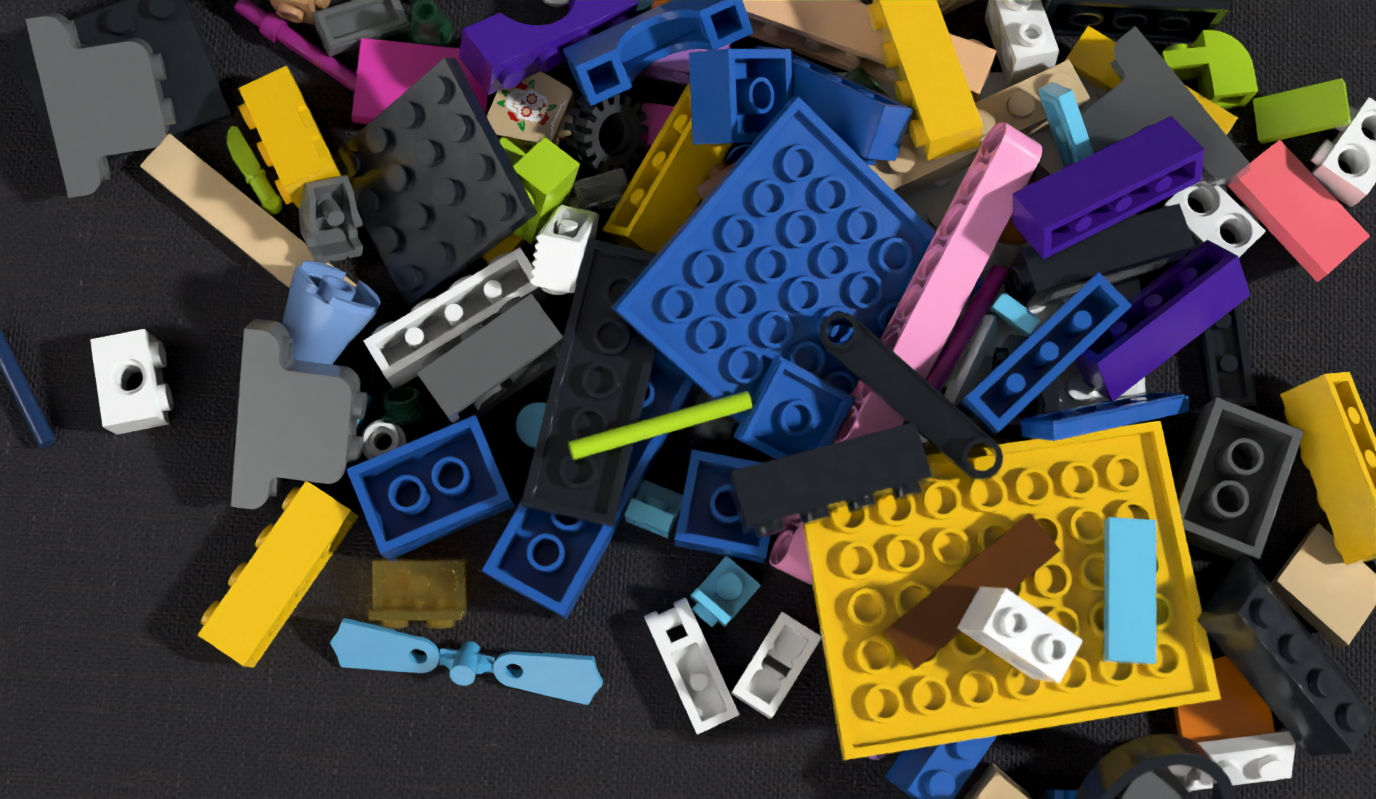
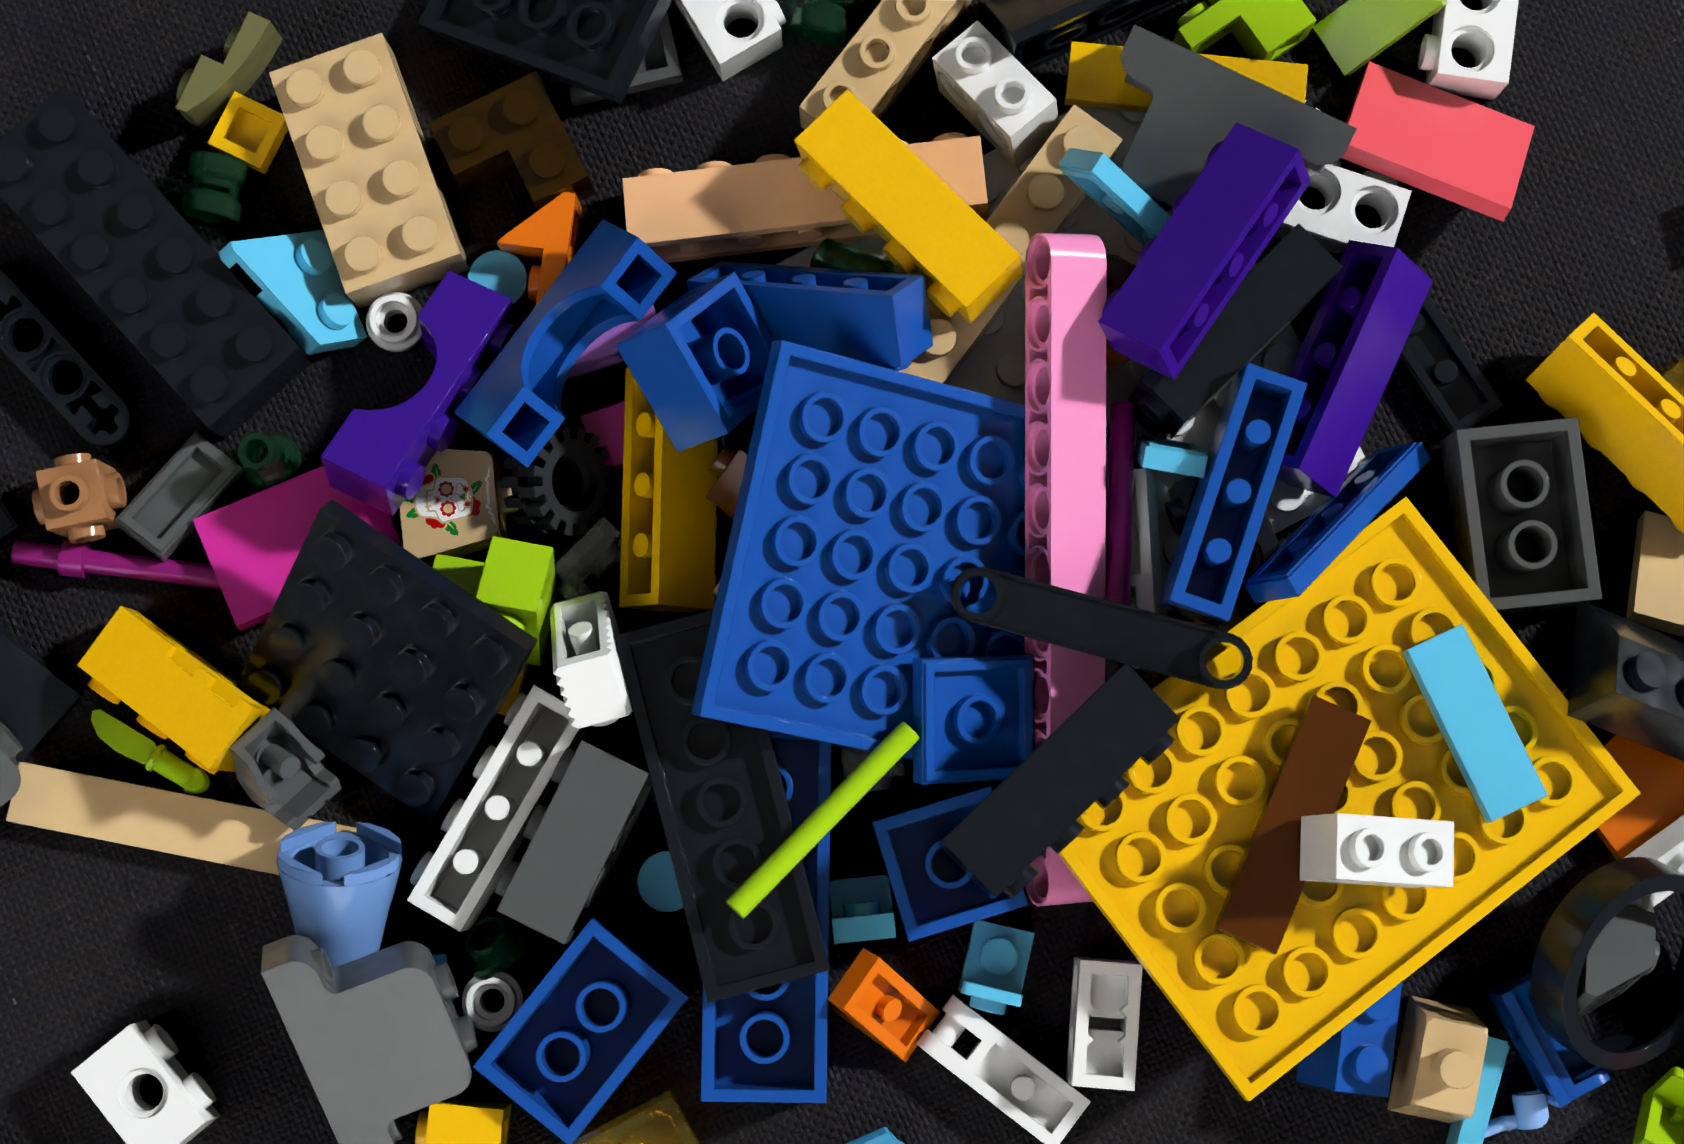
camera: 25 degrees left, 5 degrees up
(634, 576) = (882, 1005): none -> orange slope

